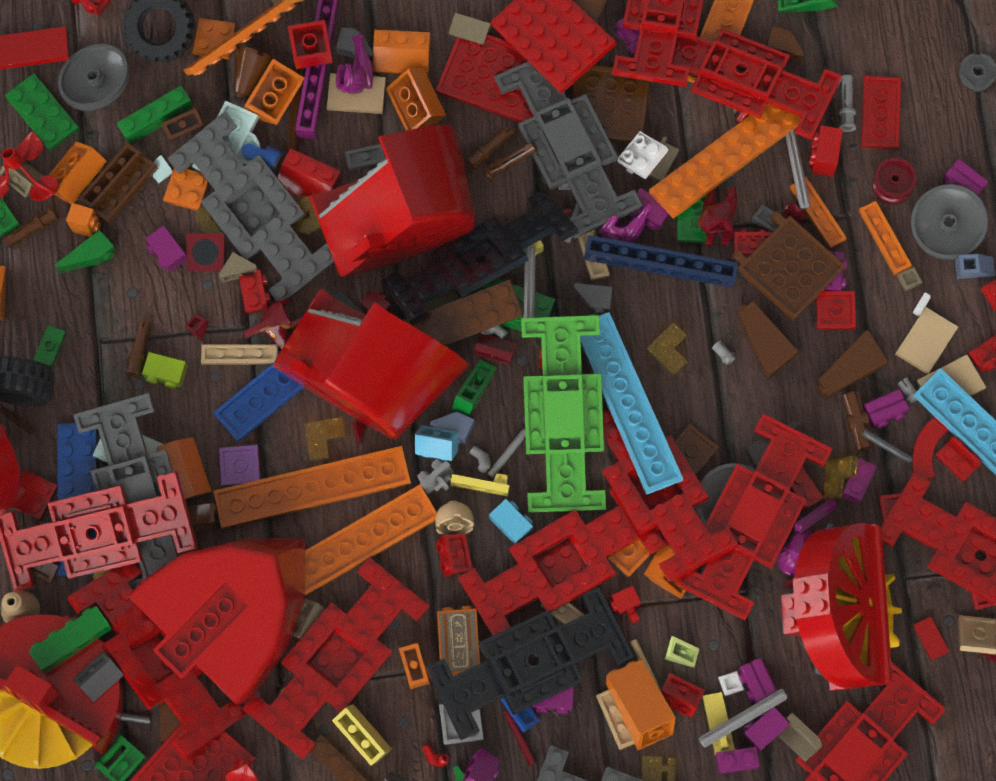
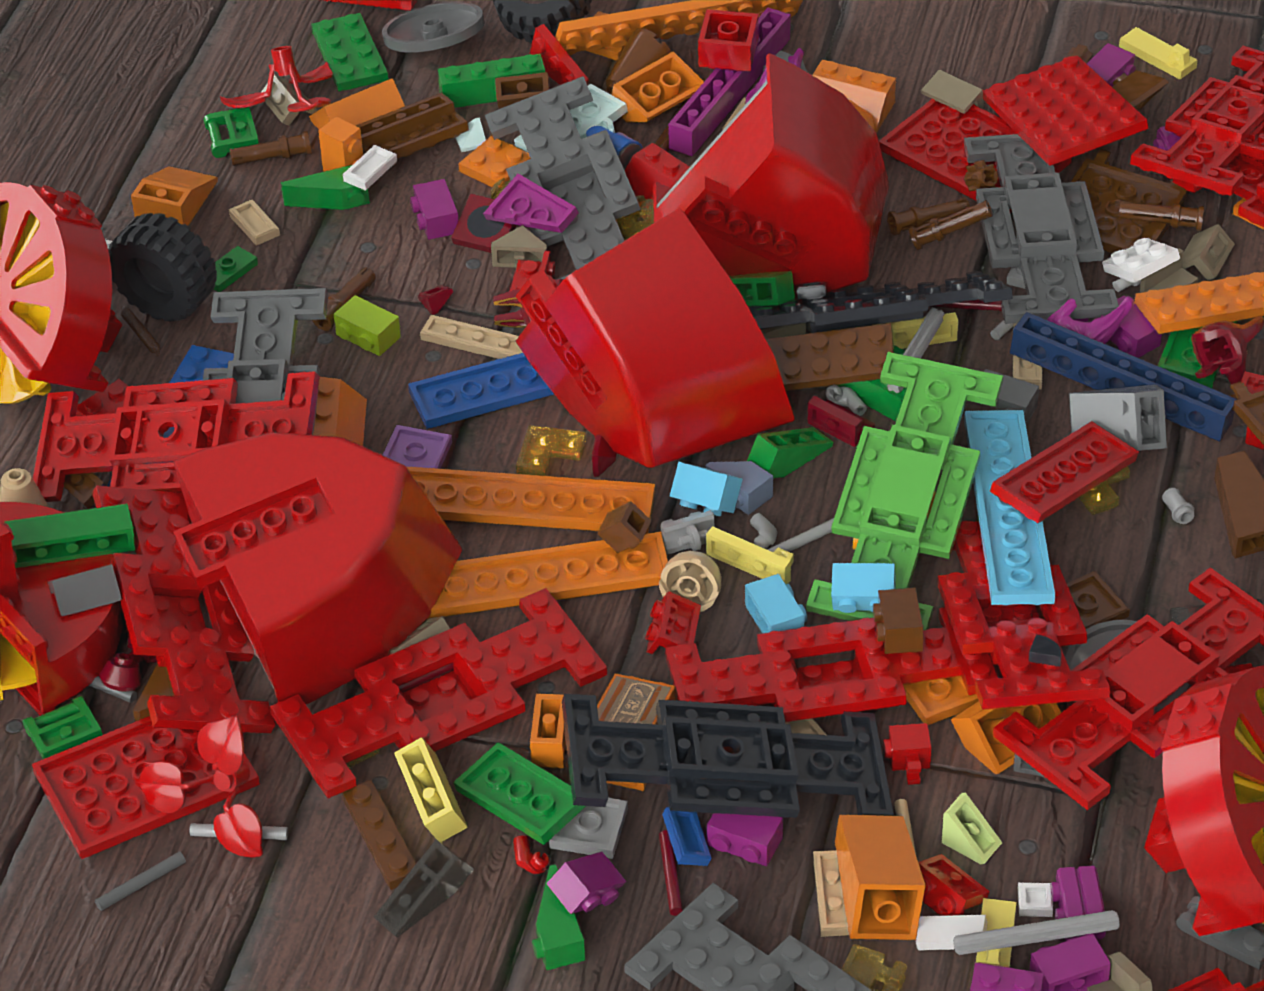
camera: 20 degrees right, 30 degrees down
(47, 297) = (254, 222): none -> tan tile
(110, 233) = (370, 167): none -> white tile
(137, 712) = (121, 673): none -> dark red cone
(194, 85) = (554, 57): none -> red wing
(234, 237) = (531, 206): none -> magenta wing
(401, 498) = (624, 527): none -> reddish brown brick
(408, 267) = (765, 288): none -> green slope
(413, 717) = (519, 793): none -> green plate
(443, 251) = (810, 290): none -> black tile
(517, 111) = (980, 176): none -> reddish brown gear
(562, 495) = (857, 585): none -> medium azure brick
(593, 519) = (899, 620): none -> reddish brown brick
(651, 103) = (1175, 215): none -> reddish brown pin
(654, 365) = (1064, 472): none -> red plate
(670, 300) = (1128, 413): none -> dark grey slope
(677, 123) = (1208, 251): none -> dark tan panel
(693, 529) = (1045, 651): none -> black tile
(693, 726) = (939, 931): none -> white tile

